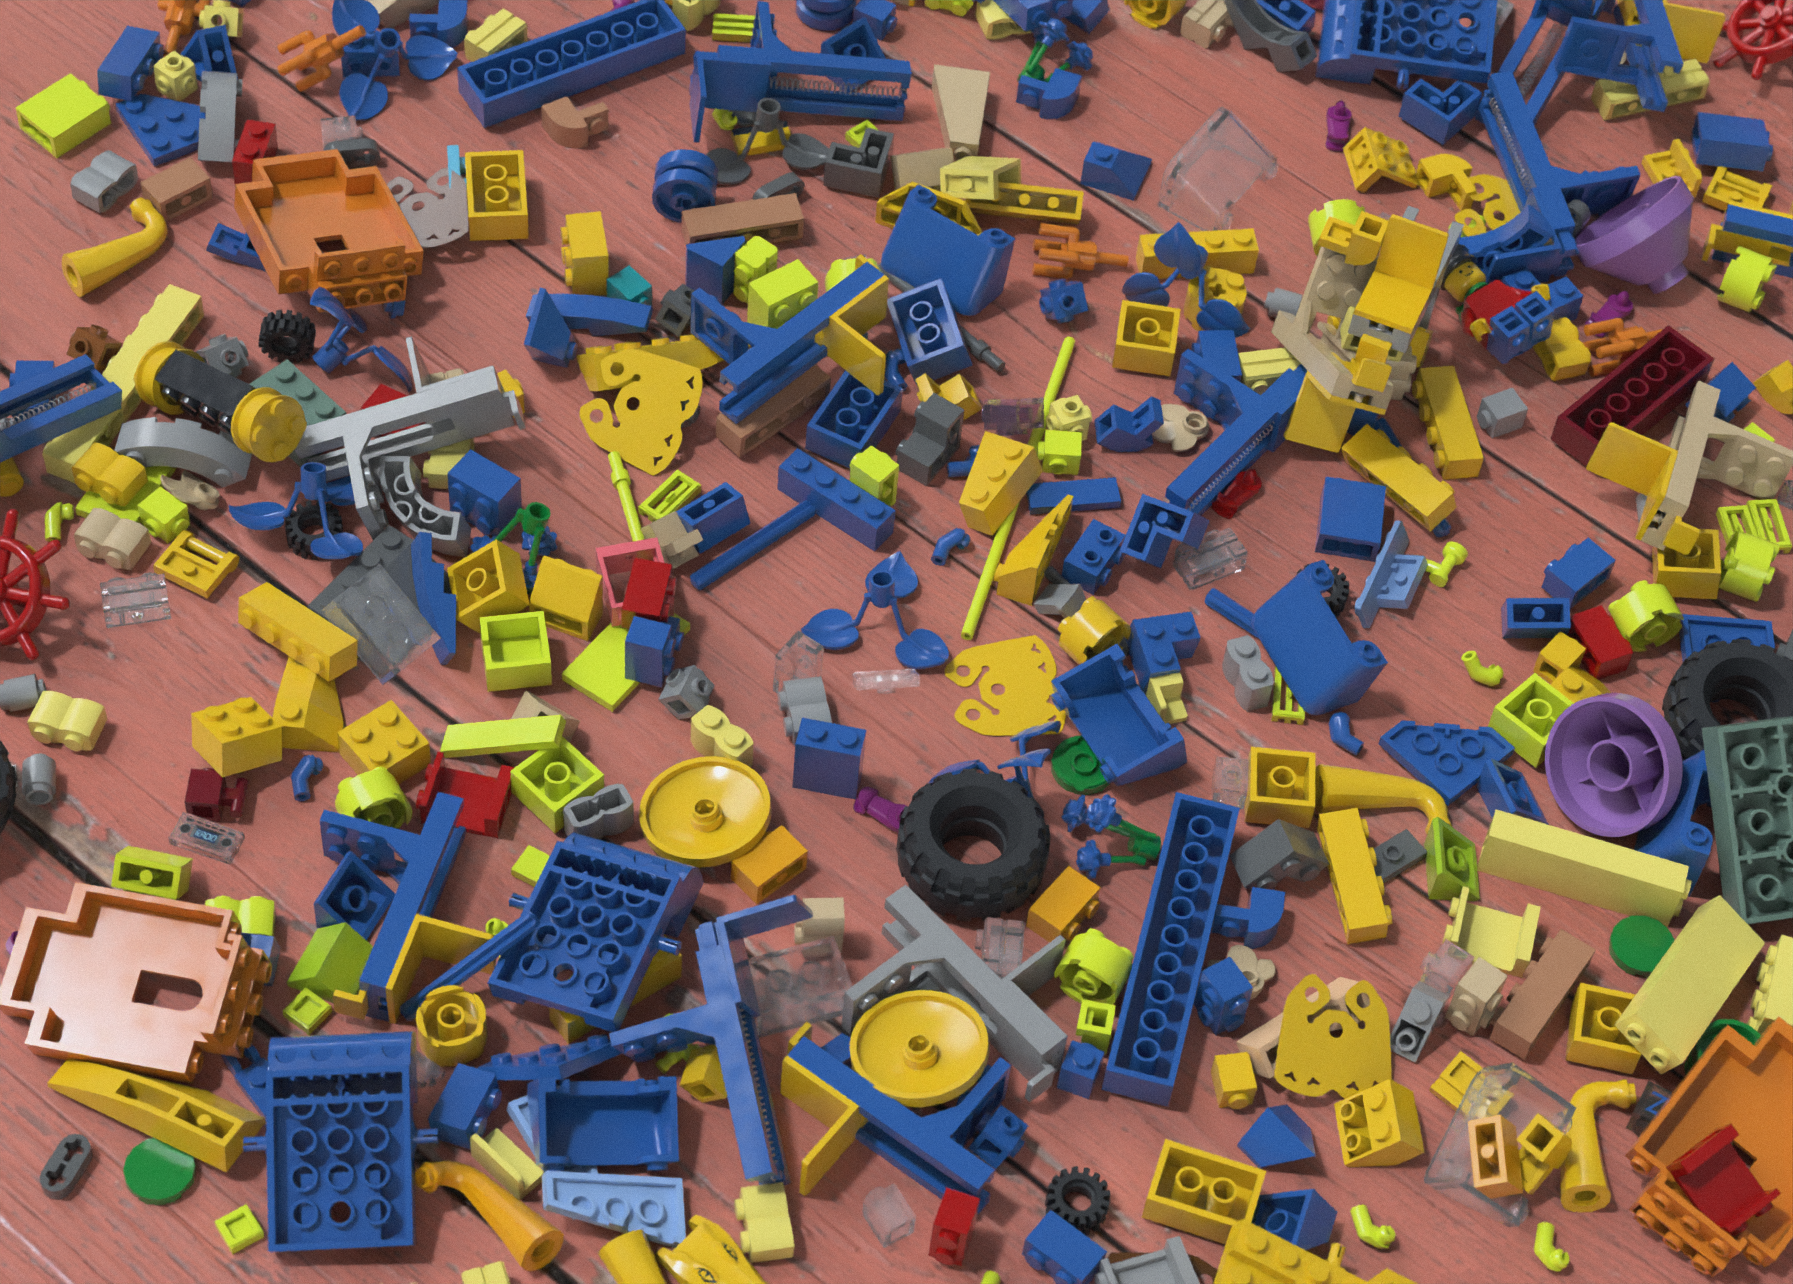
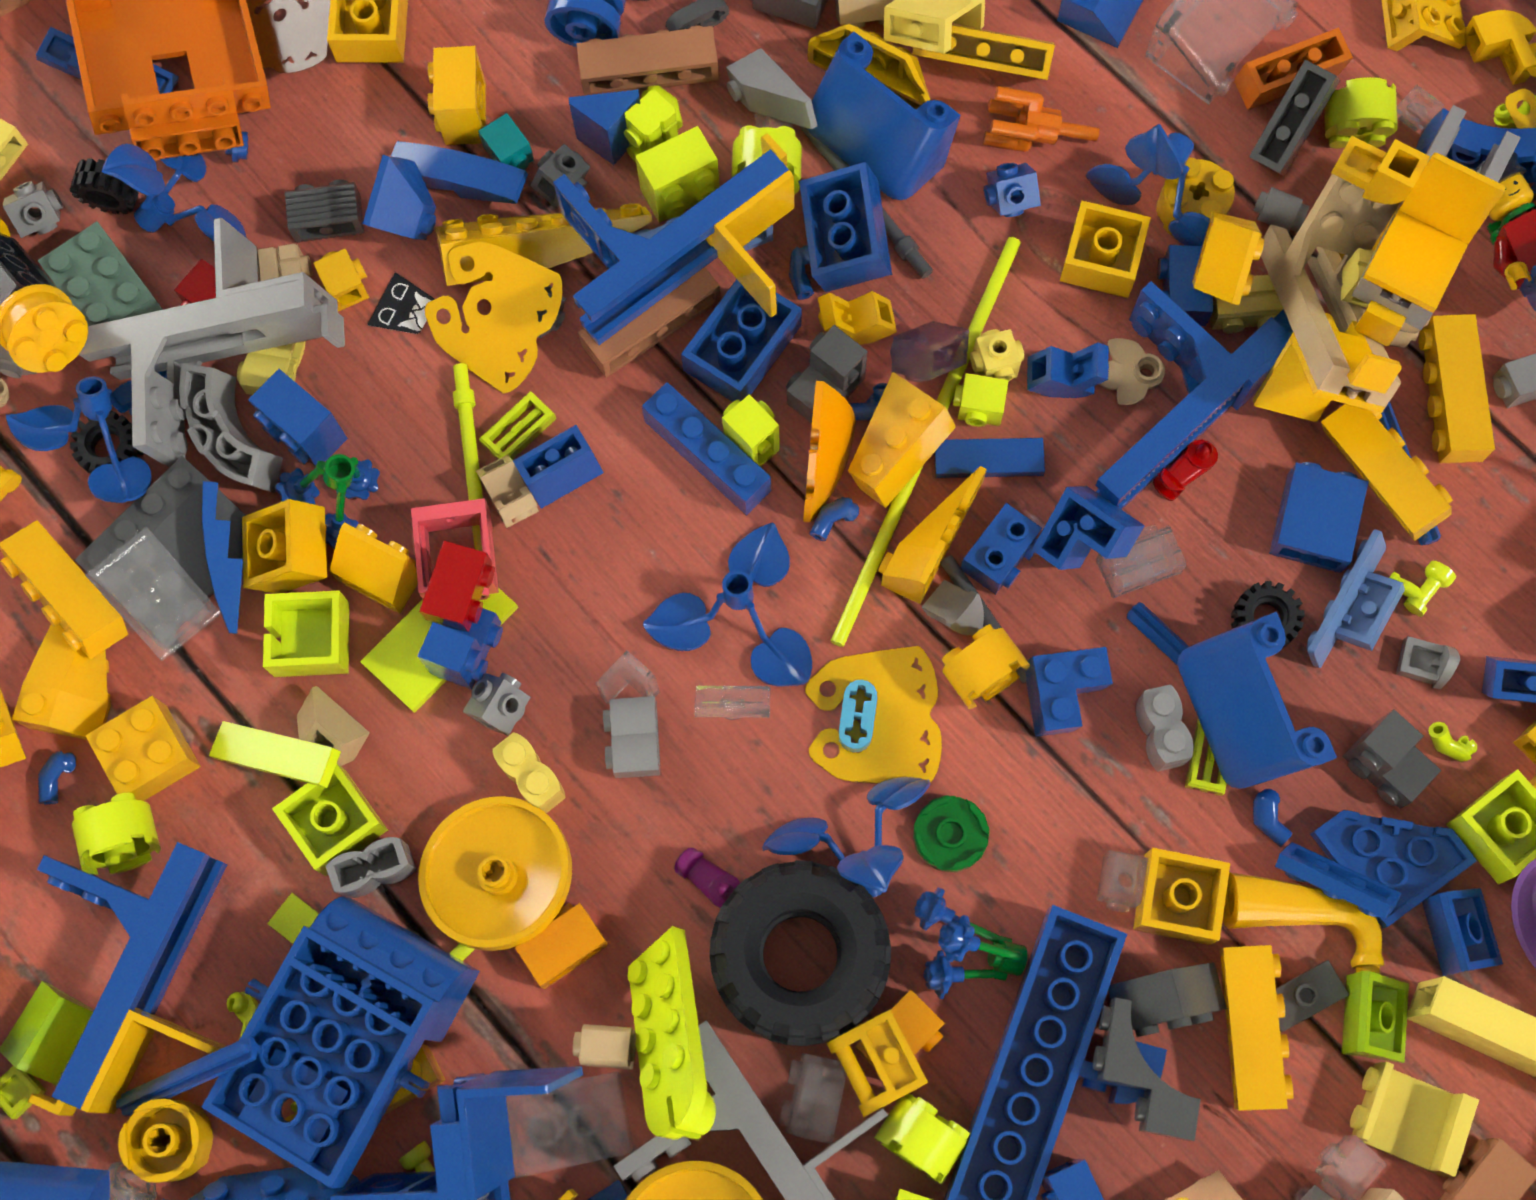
camera: 15 degrees right, 20 degrees up
(353, 897) = (79, 955): blue slope -> none
(479, 347) = (324, 211): none -> dark grey brick
(484, 796) = (227, 821): red panel -> none
(554, 417) = (401, 307): none -> black sticker
(752, 545) = (604, 500): blue axle -> none
(829, 758) = (645, 818): blue brick -> none
(848, 237) = (769, 90): none -> light grey slope
(877, 900) = (669, 1040): none -> neon yellow plate
(939, 486) = (829, 446): none -> light orange brick
(999, 685) = (867, 716): none -> medium azure beam
(1056, 904) = (889, 1056): none -> yellow plate
(1118, 719) = (998, 790): blue windscreen -> none
(1165, 696) = (1062, 755): light yellow panel -> none
(1227, 249) = (1213, 129): yellow brick -> none
(1246, 326) = (1227, 257): none -> yellow slope
(1254, 970) = (1100, 1135): tan plate -> none
(1280, 203) = (1272, 74): none -> orange brick
(1286, 234) = (1295, 117): none -> dark grey brick
(1287, 923) = (1119, 1062): none -> dark grey arch
(1403, 766) = (1338, 881): none -> blue plate
(1431, 680) = (1391, 760): none -> dark grey brick
(1453, 616) = (1427, 662): none -> light grey tile

